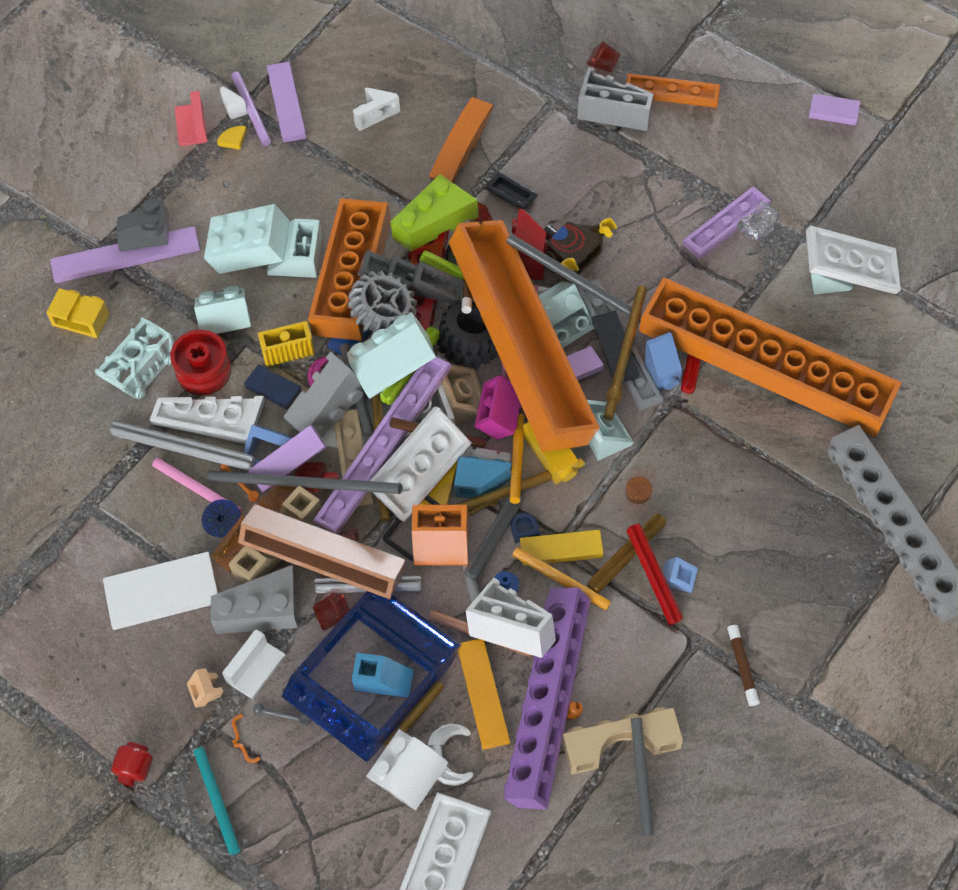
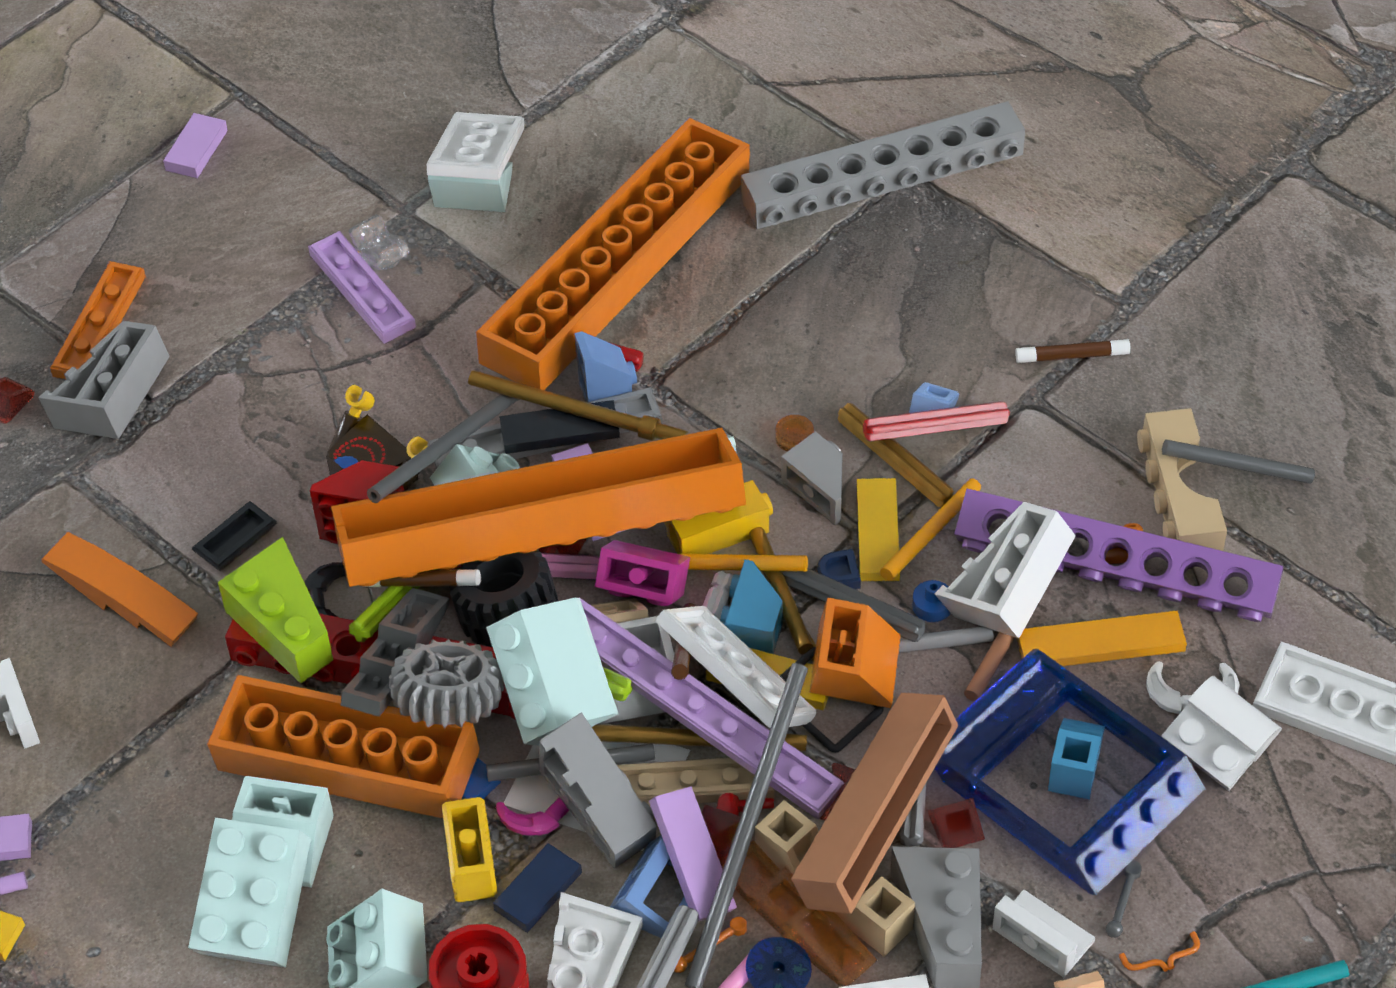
camera: 85 degrees left, 10 degrees down
(597, 505) = (815, 474): none -> light grey slope

